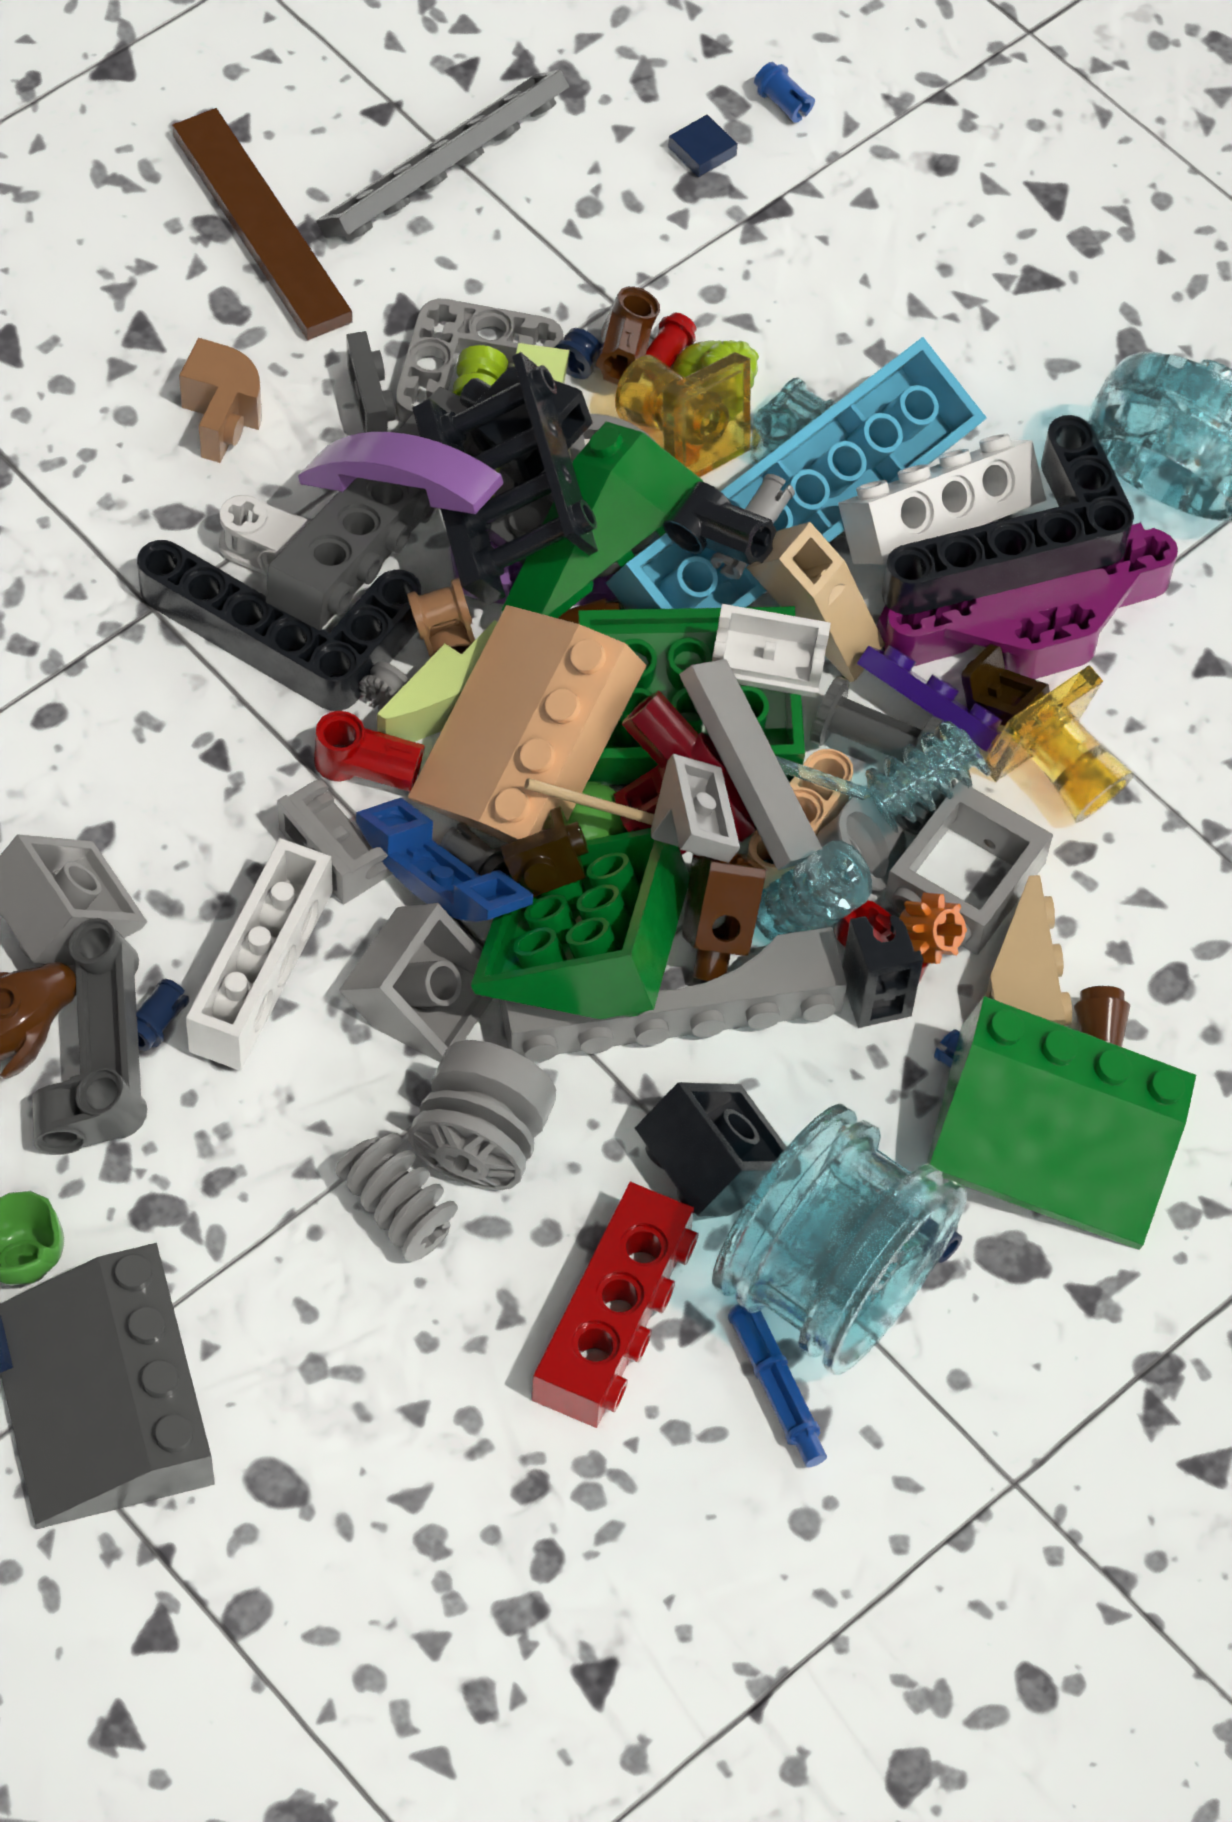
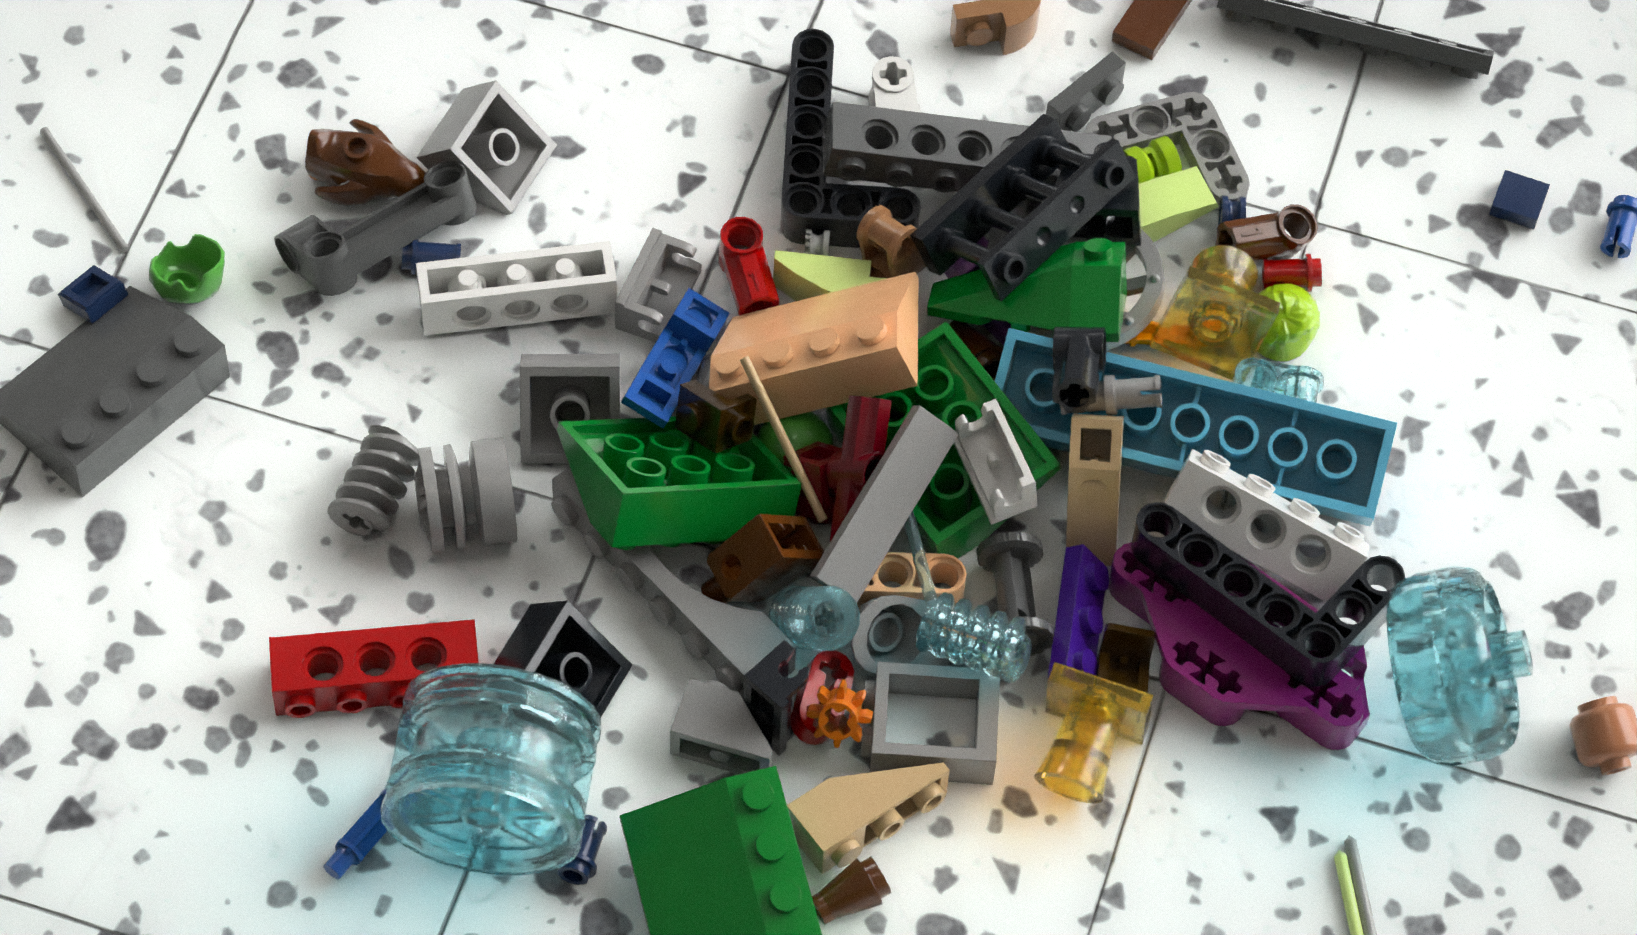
camera: 60 degrees right, 0 degrees up
(448, 475) = (981, 142): medium lavender slope -> none
(695, 810) = (803, 483): light grey slope -> none
(869, 1042) = (718, 729): none -> light grey slope

